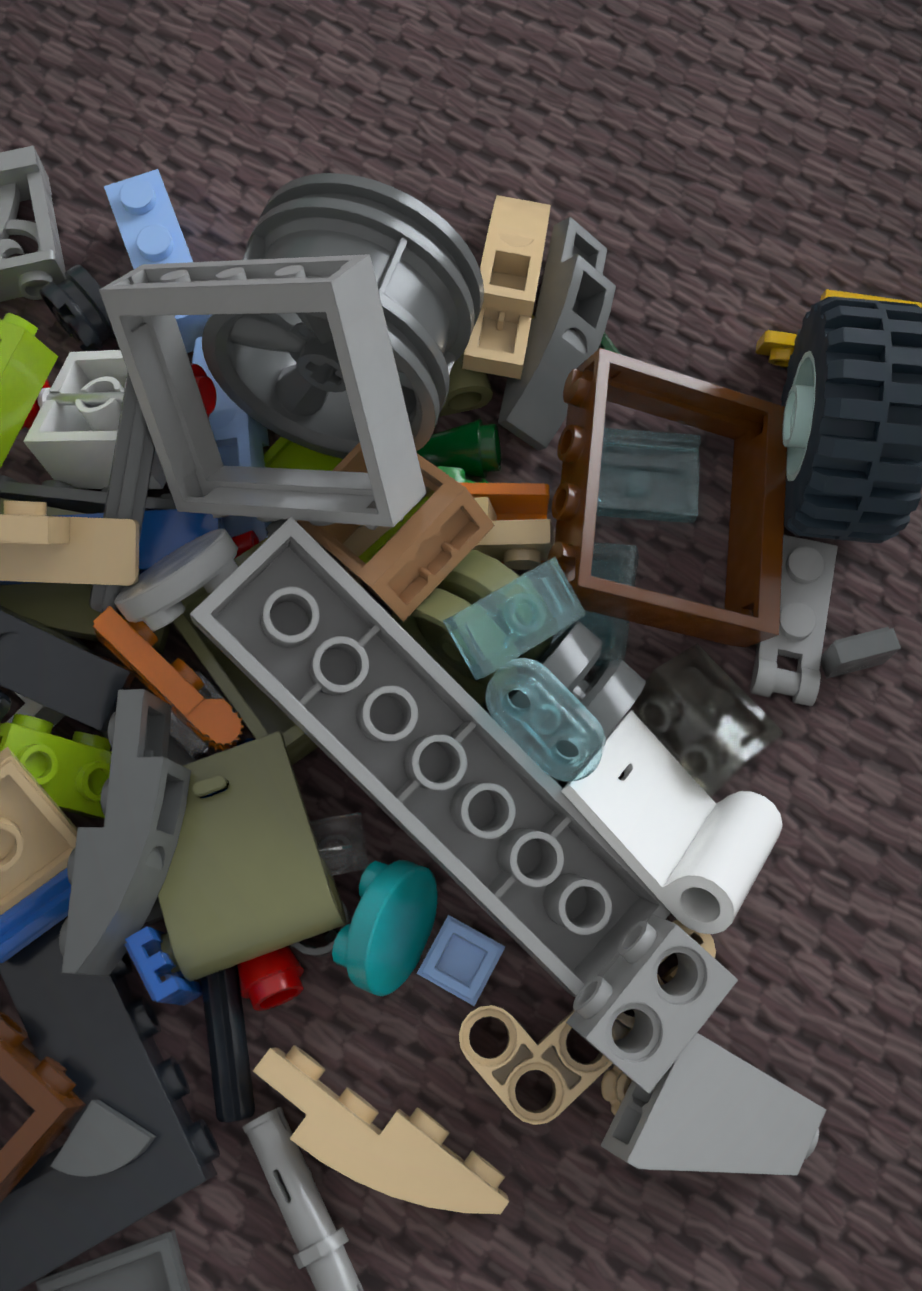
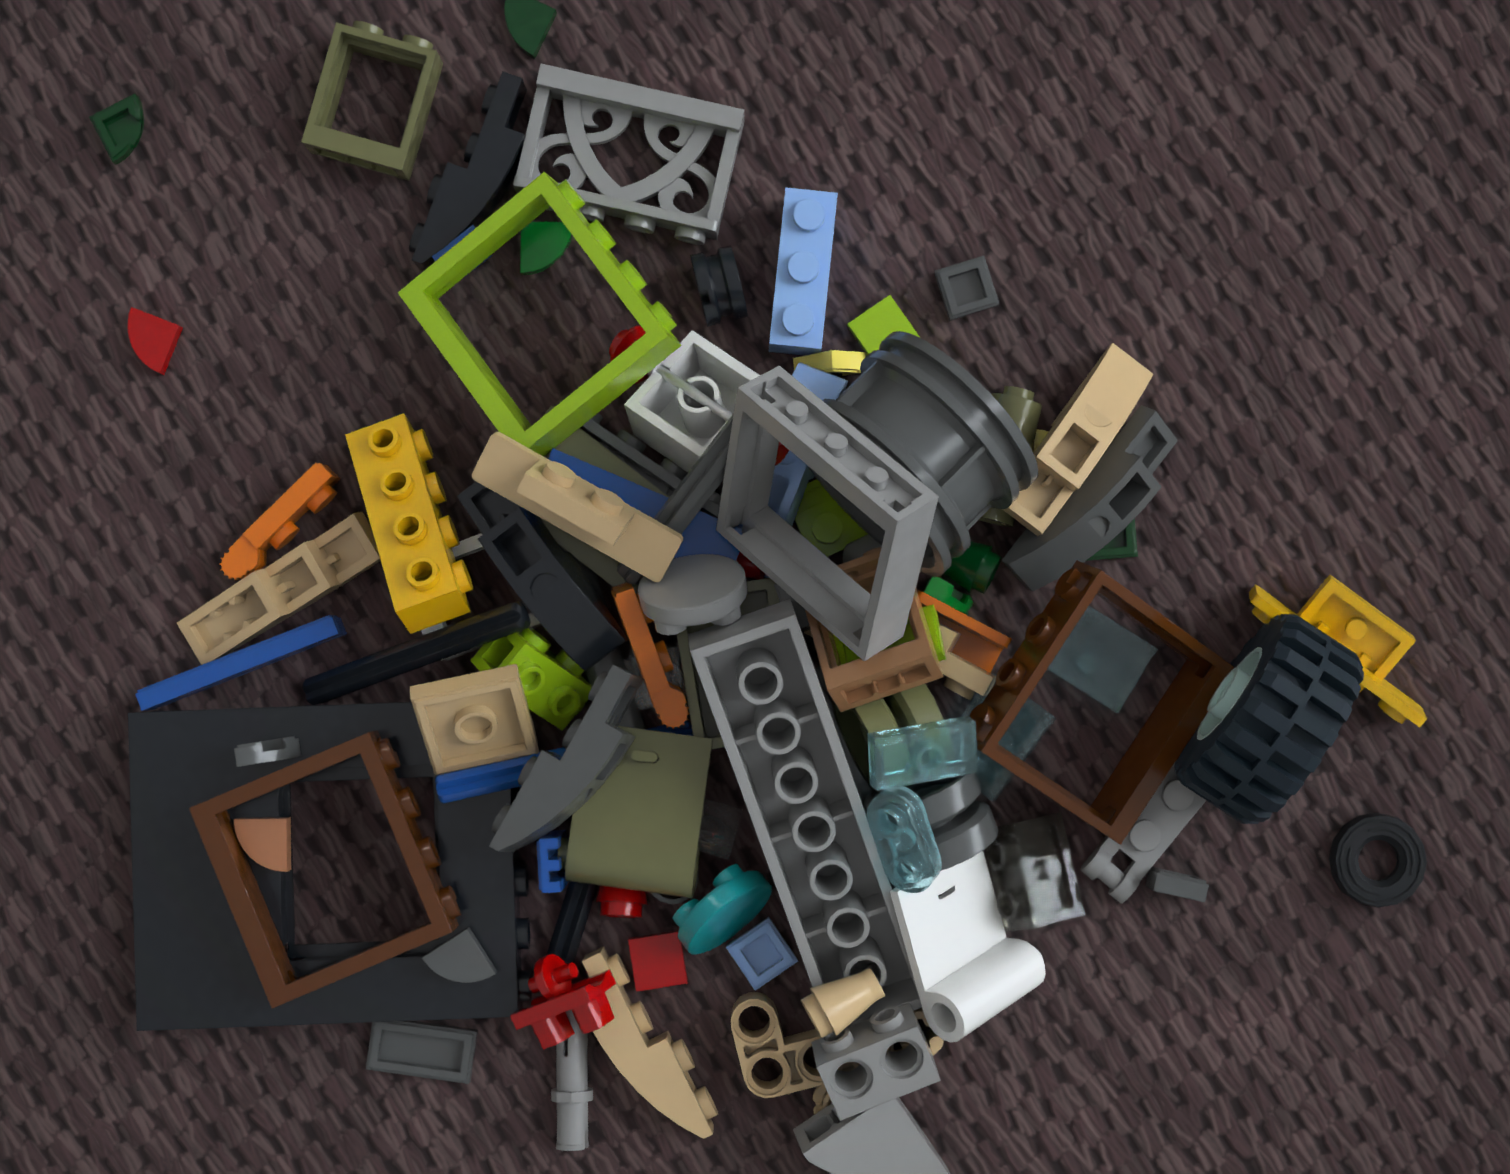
camera: 25 degrees right, 15 degrees up
(229, 1111) = (559, 995): none -> red hips
(347, 1030) = (657, 961): none -> red tile
(572, 950) = (841, 1001): none -> tan cone

